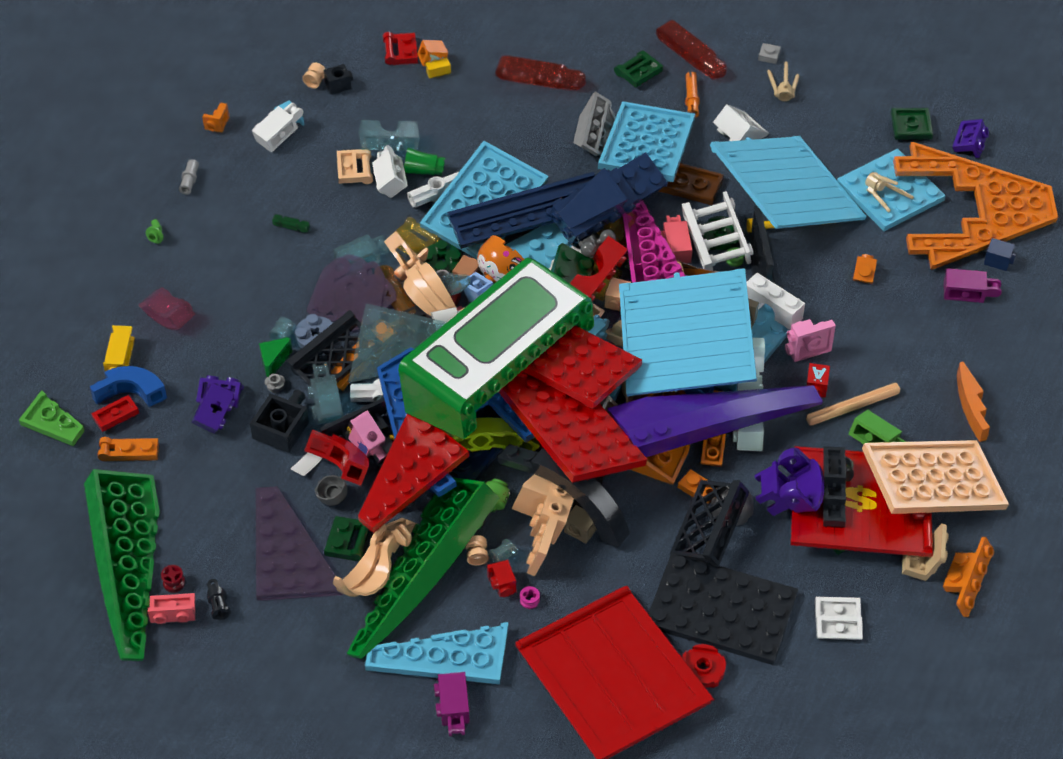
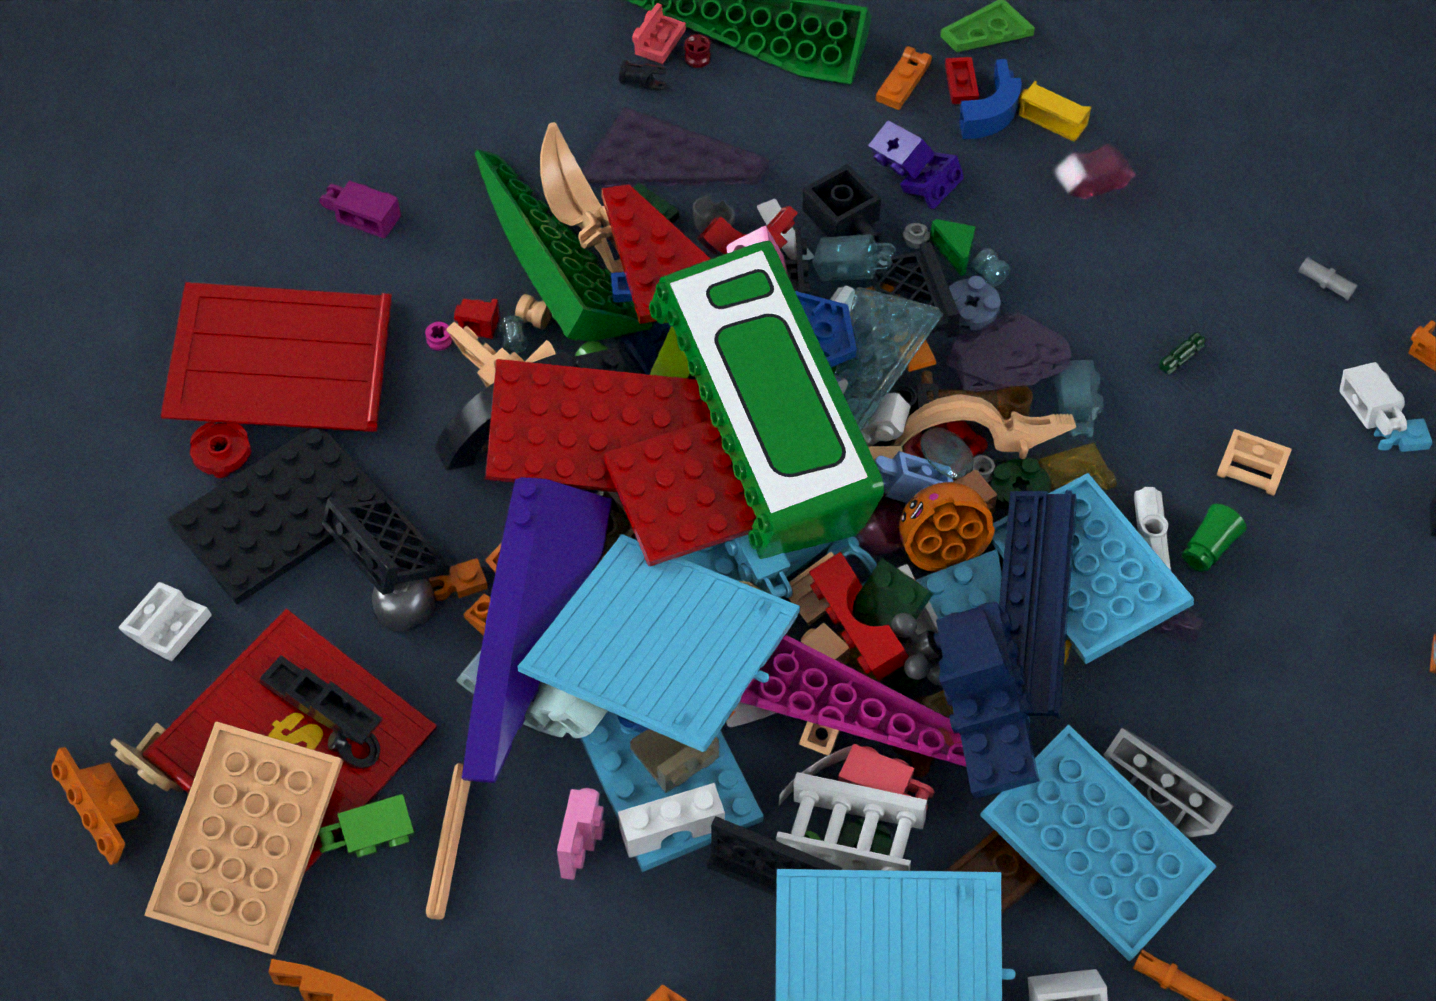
camera: 120 degrees right, 5 degrees up
(154, 232) = (1236, 210): bright green plate -> none
(374, 137) = (1292, 492): clear light blue arch -> none
(389, 172) = (1214, 485): white brick -> none
(438, 67) = (1421, 656): yellow piece -> none
(474, 652) = (417, 238): medium azure wing -> none
(539, 73) = (1339, 786): clear red piece -> none
(641, 72) = (1278, 942): dark green plate -> none
(799, 491) = (364, 658): dark purple piece -> none
(818, 376) = (513, 812): red brick -> none

